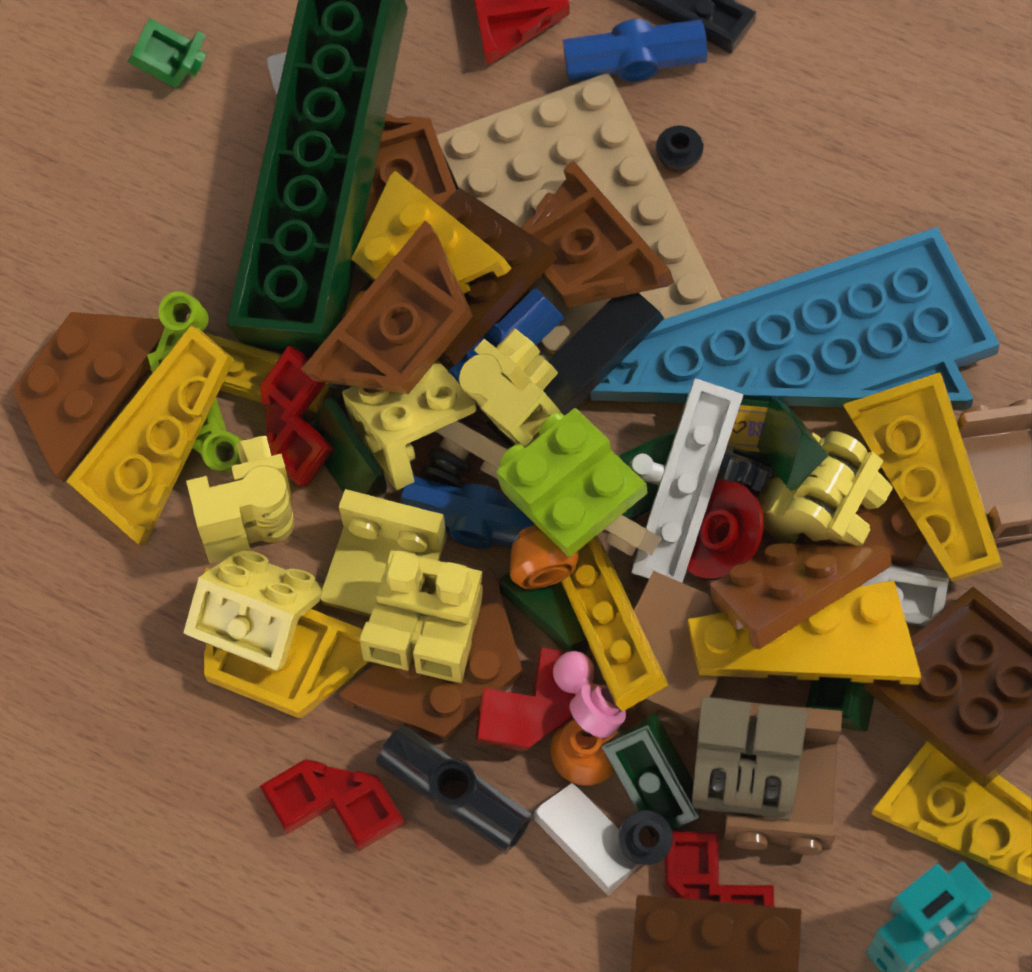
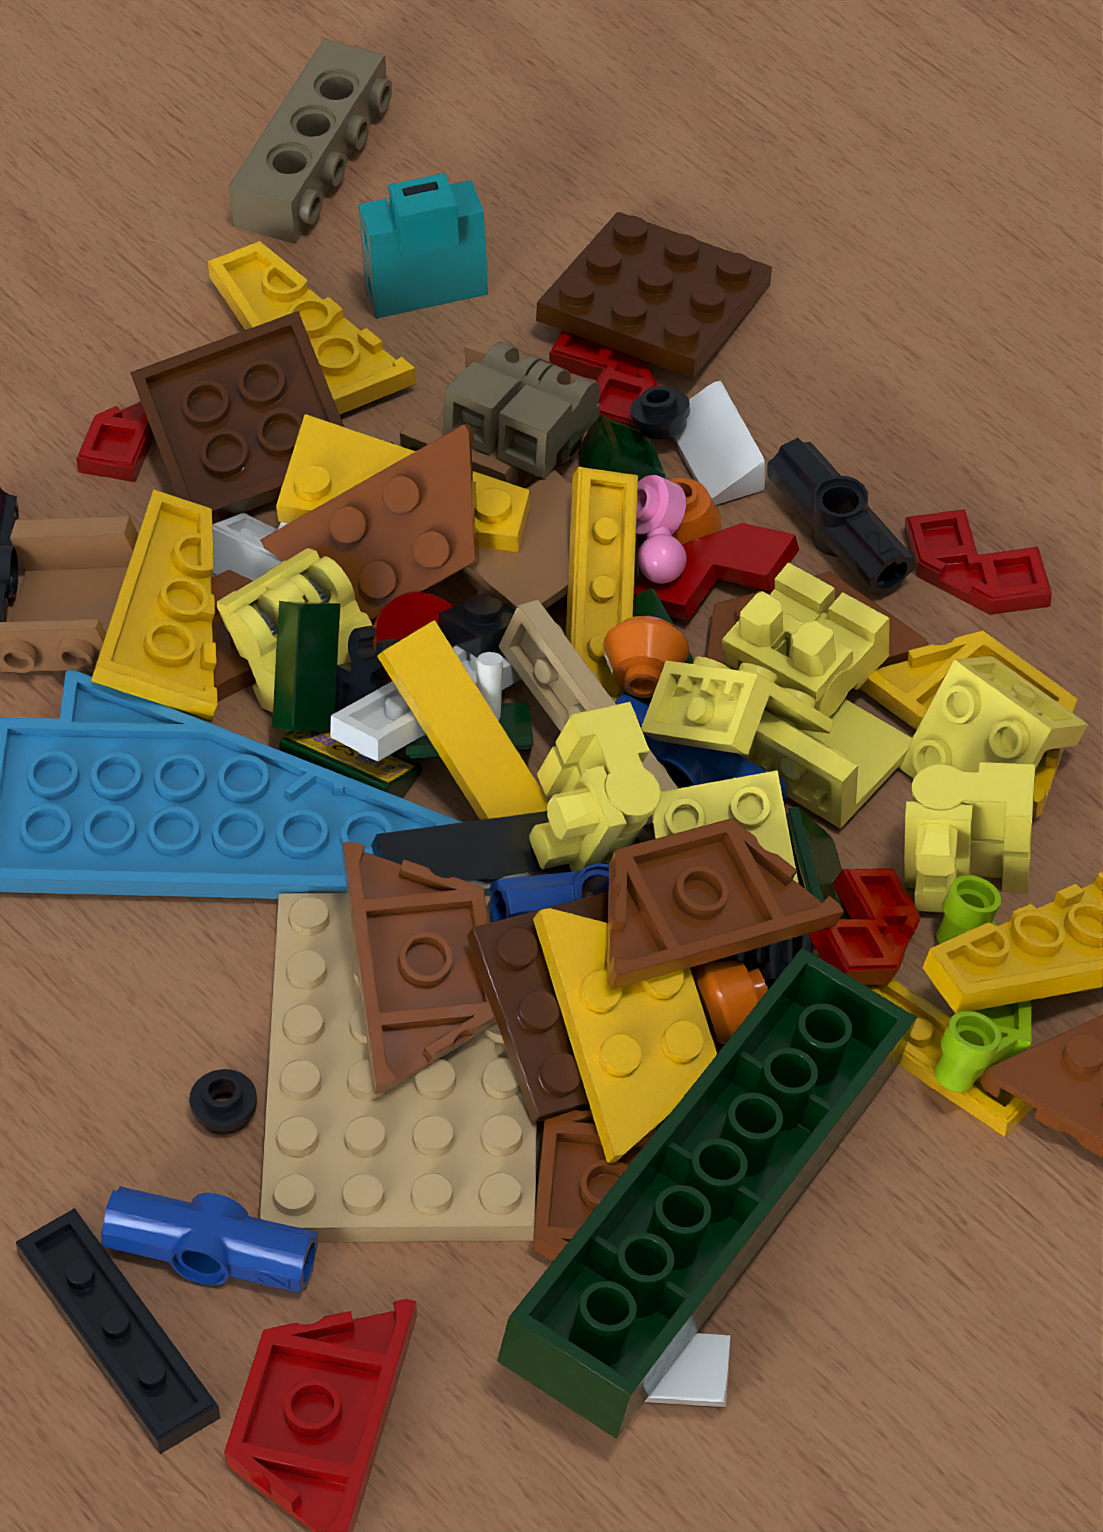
camera: 160 degrees left, 15 degrees down
(167, 53) = (859, 1475): green bracket -> none
(453, 515) = (722, 707): none -> light yellow bracket
(569, 481) = (579, 665): lime plate -> none
(654, 430) = (461, 725): none -> yellow tile
(685, 556) = (476, 624): none -> black plate

